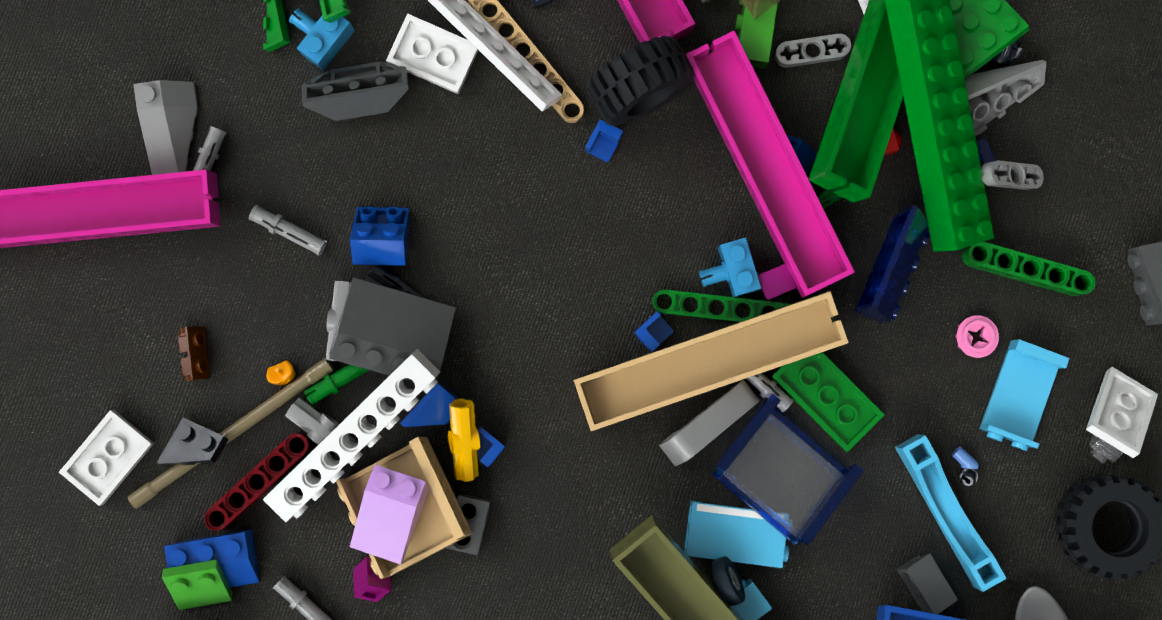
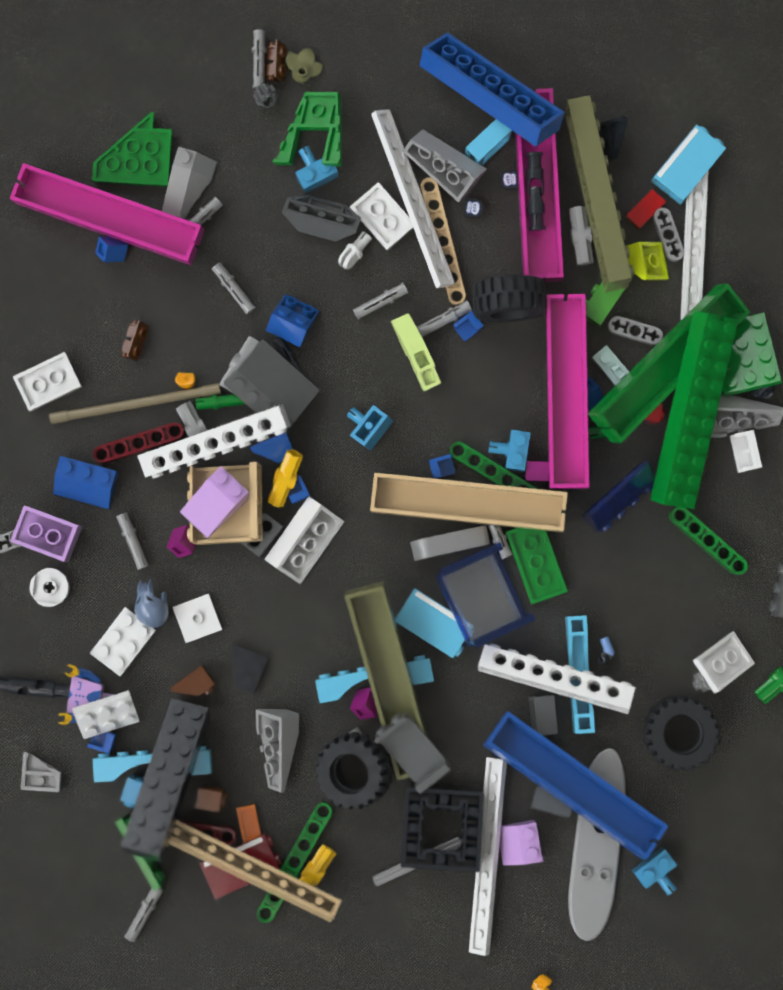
camera: 25 degrees right, 0 degrees up
(90, 122) = (137, 158): none -> green wing
(110, 253) = (111, 249): none -> blue panel
(192, 445) = (107, 399): wing -> none
(197, 584) = (69, 491): bright green plate -> none
(417, 114) = (354, 251): none -> white arm
(497, 135) = (400, 289): none -> light grey pin
(524, 506) = (304, 540): none -> white slope
(540, 324) = (370, 426): none -> dark azure brick
(554, 202) = (416, 351): none -> yellowish green slope
(572, 142) = (445, 318): none -> light grey pin
(728, 581) = (413, 648): black bush -> none
(803, 108) = (610, 365): none -> light aqua plate
(984, 151) = (716, 451): clear blue tile -> none
(988, 332) = (654, 560): bright pink gear -> none
(1004, 179) = (718, 474): light grey beam -> none
(1021, 135) = (745, 451): none -> white hinge
(1021, 393) = (665, 621): medium azure panel -> none
(1024, 525) = (563, 687): none -> white brick

